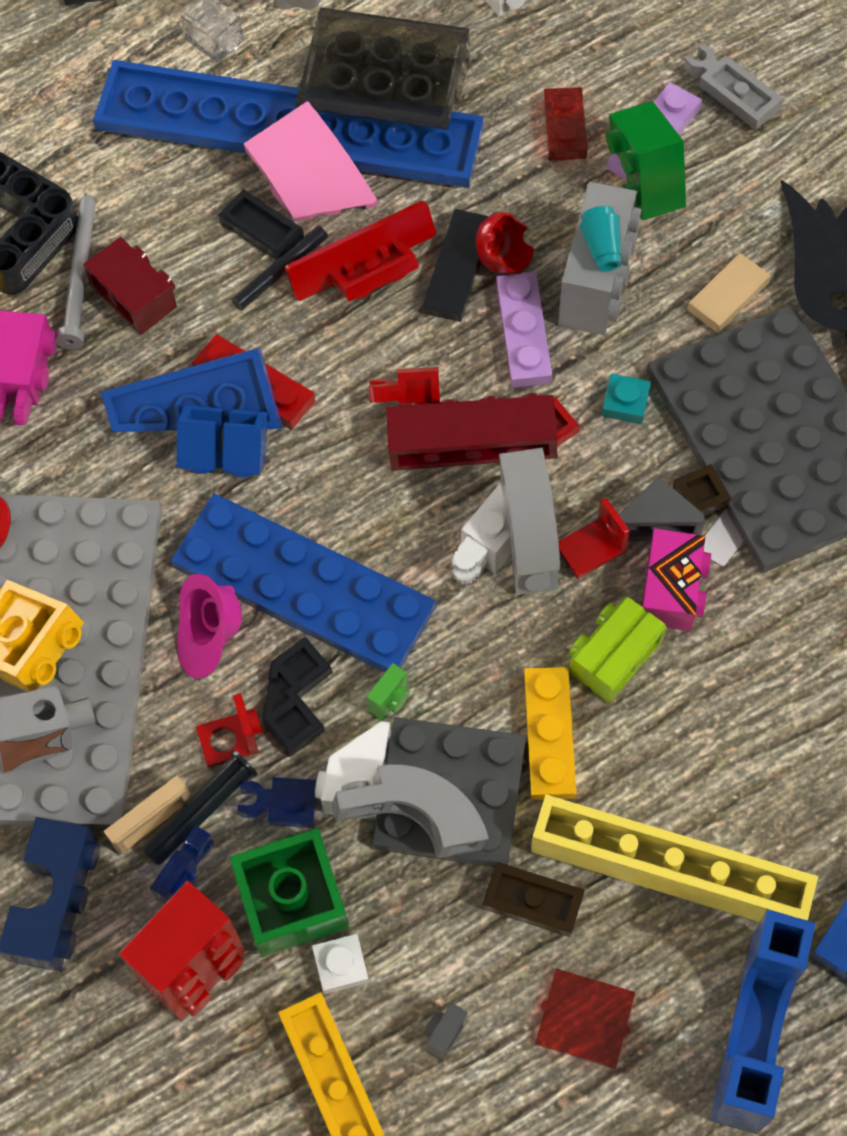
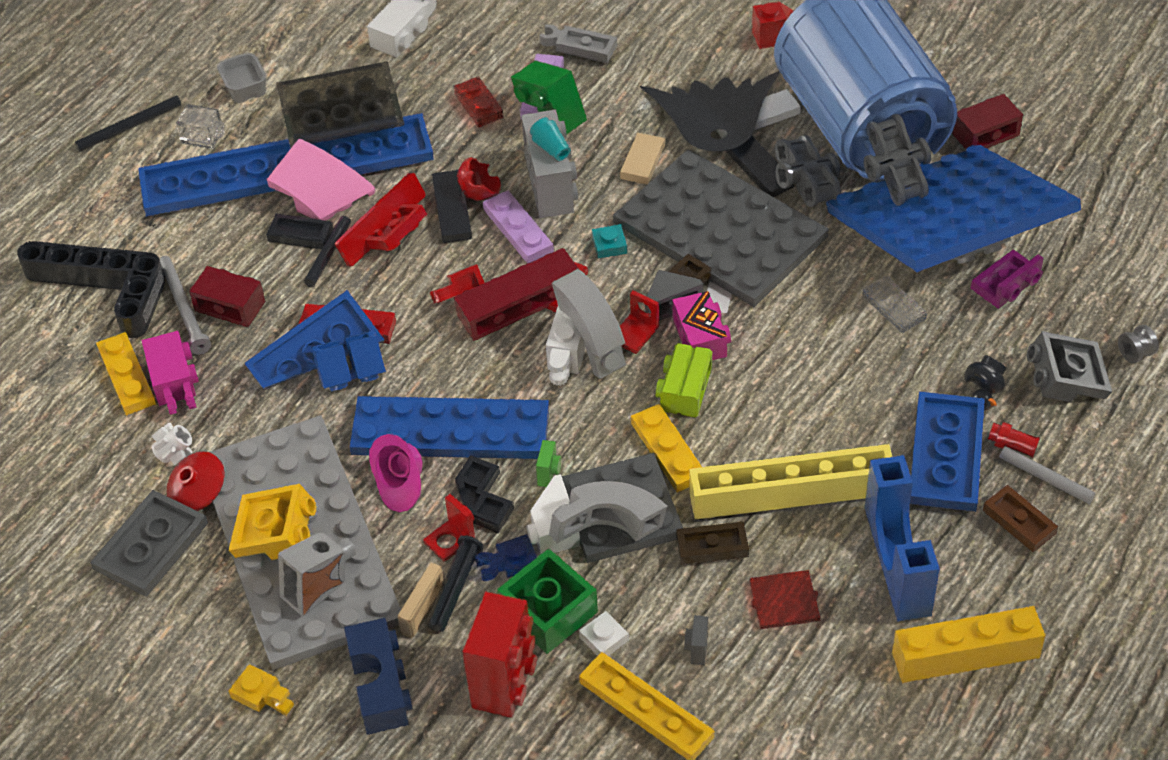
camera: 25 degrees left, 15 degrees down
(182, 865) = (462, 621): clear blue plate -> none

